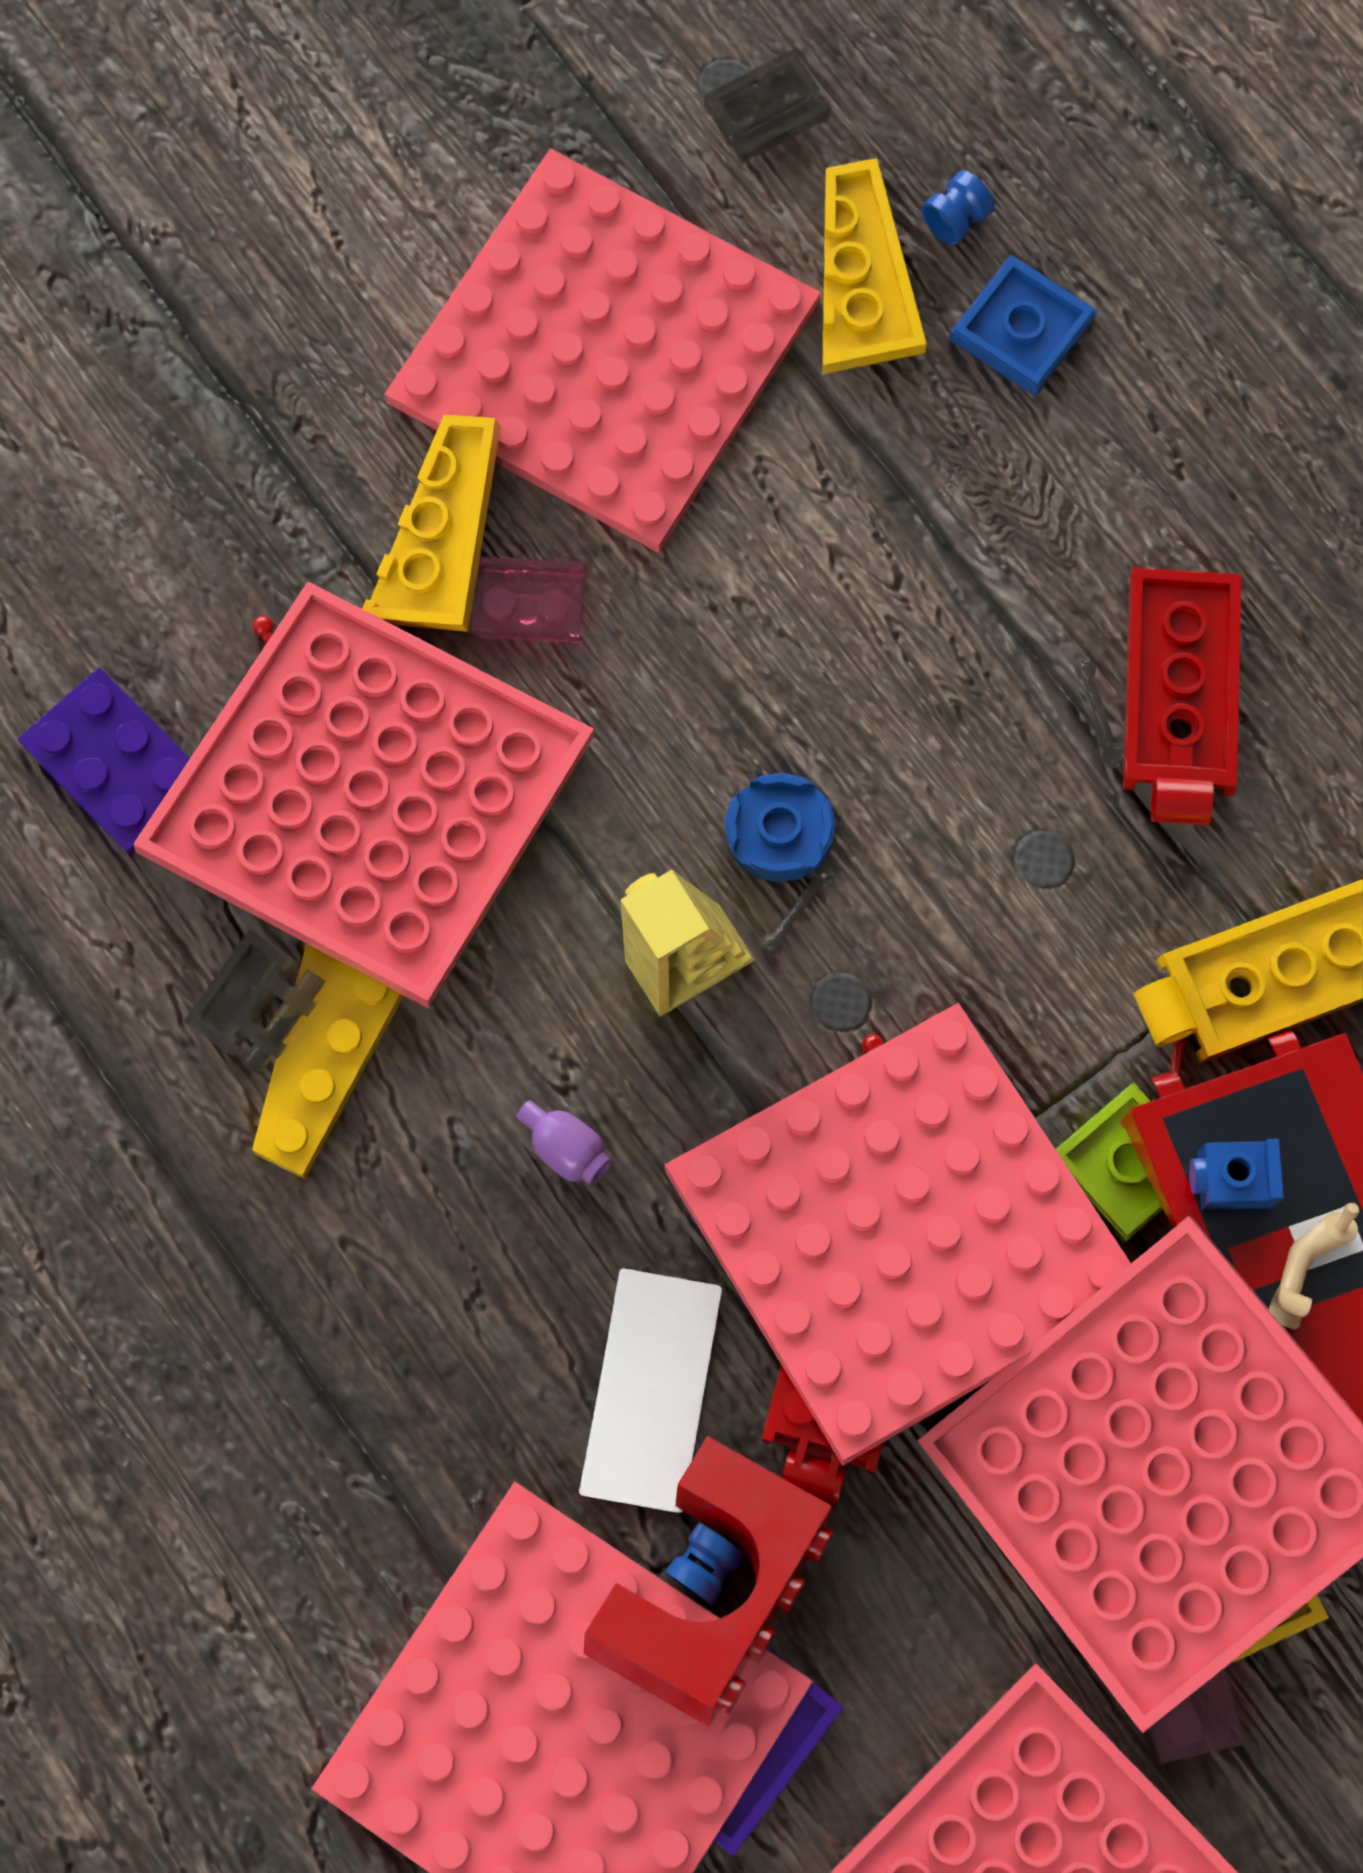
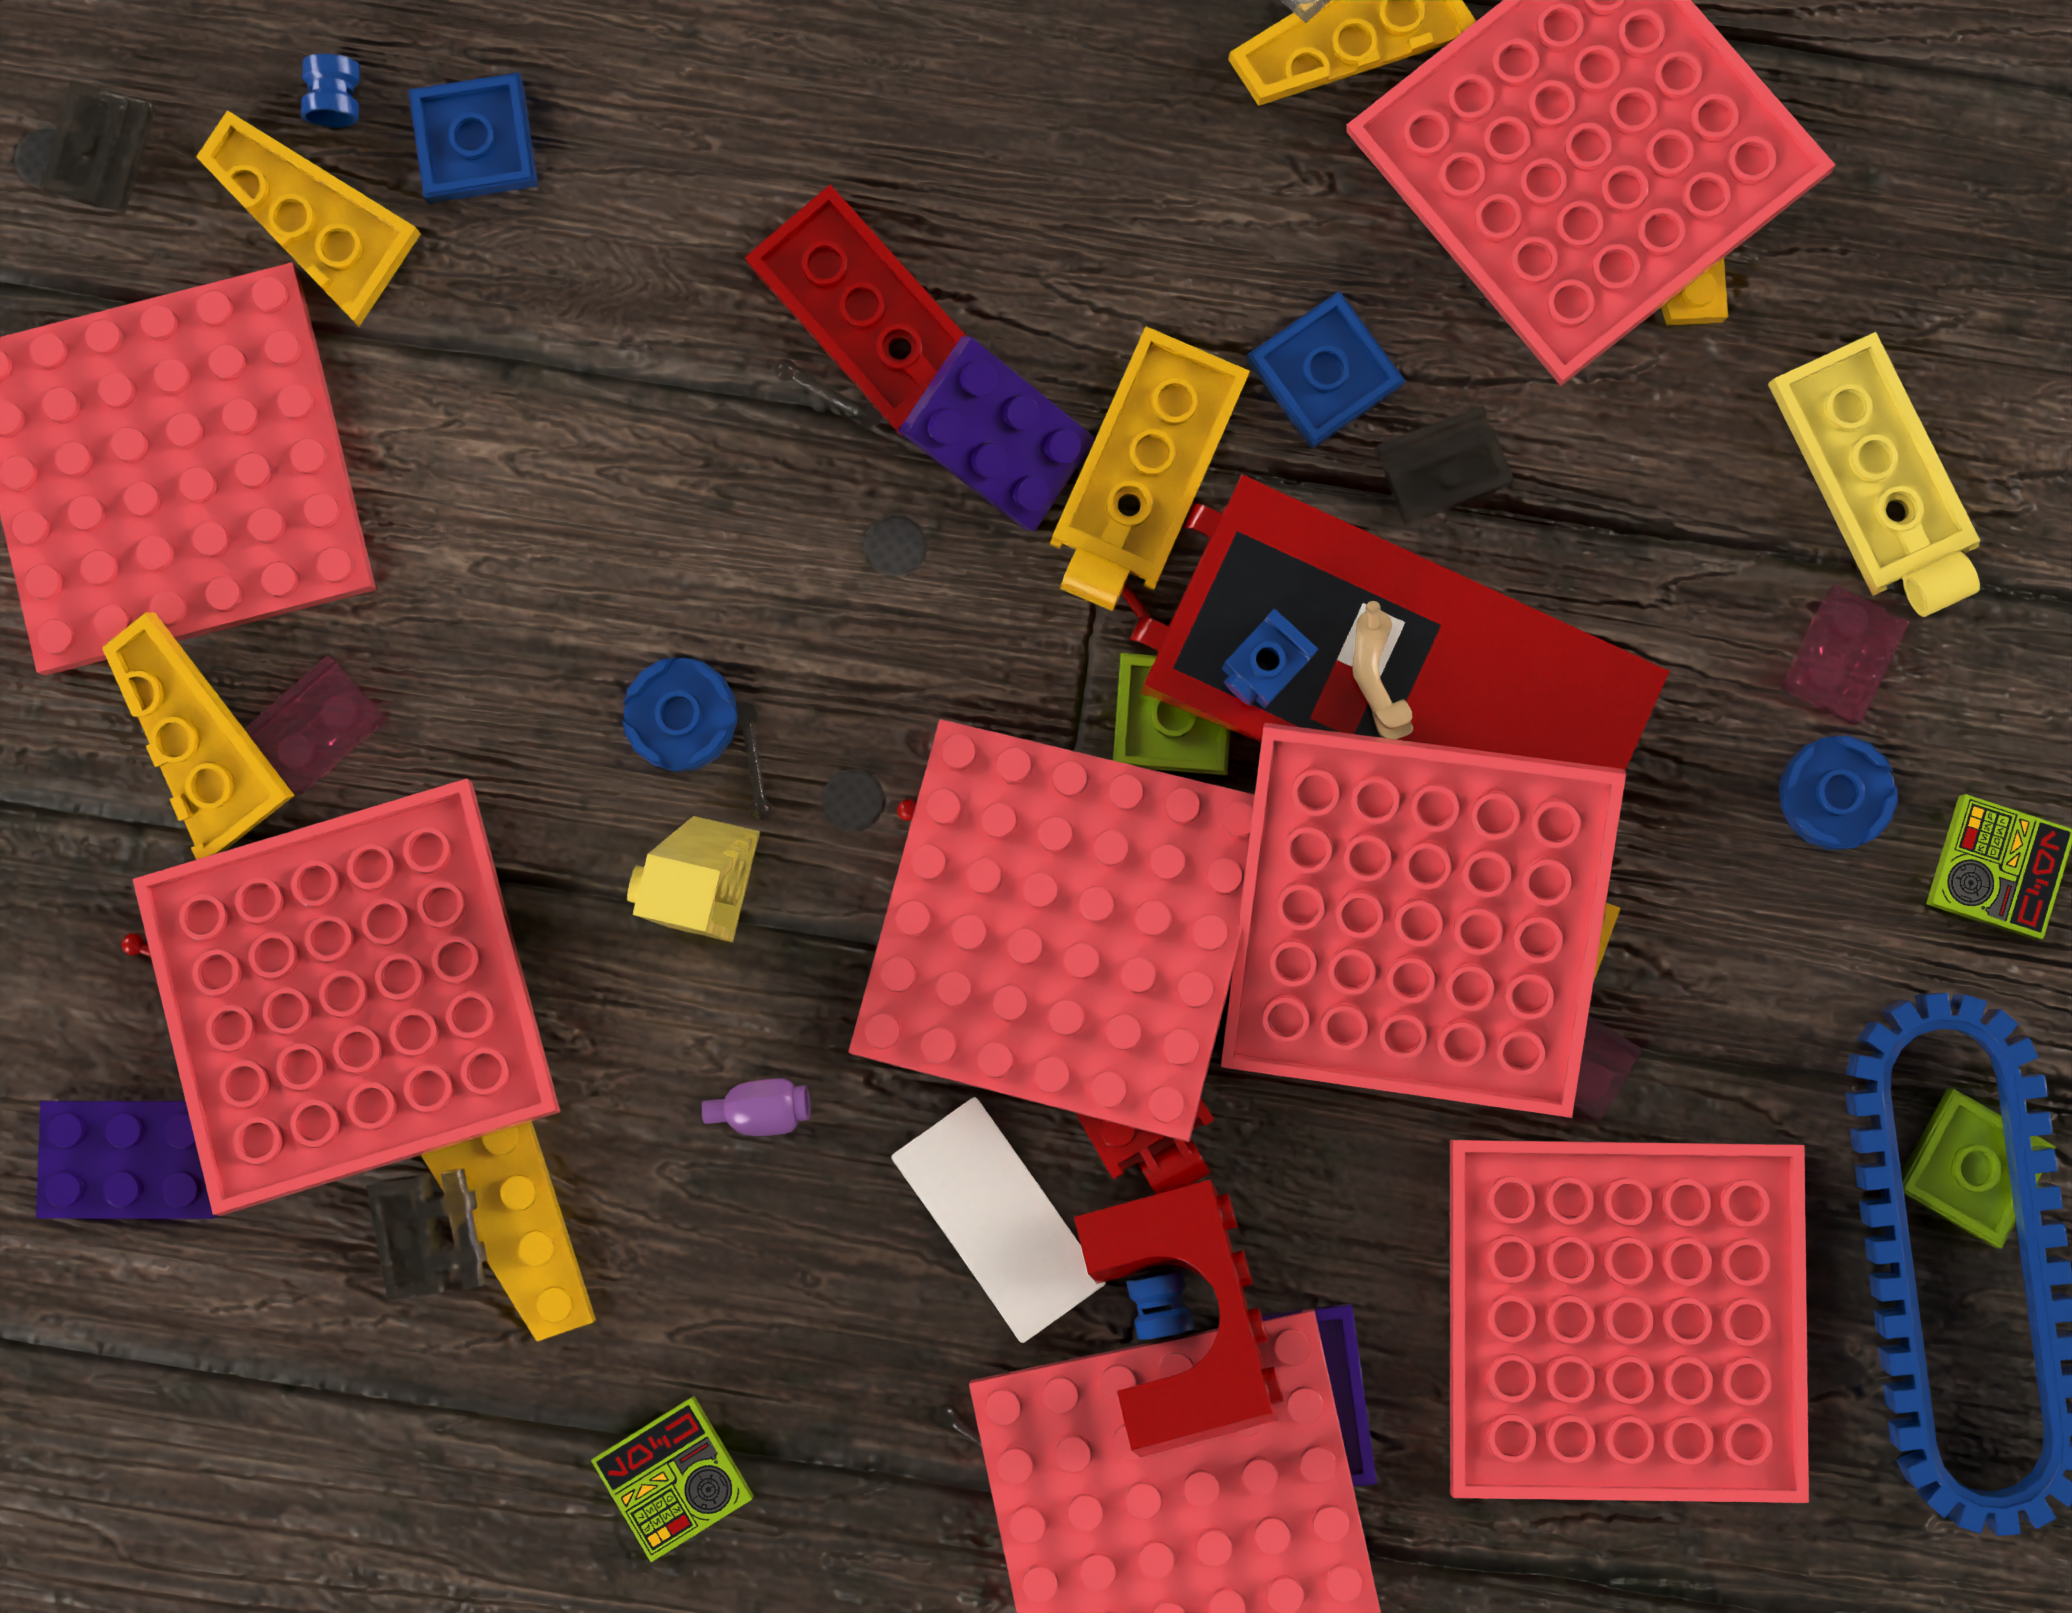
camera: 45 degrees left, 10 degrees up
(245, 1338) = (672, 1478): none -> tile
(1194, 846) = (997, 434): none -> dark purple plate

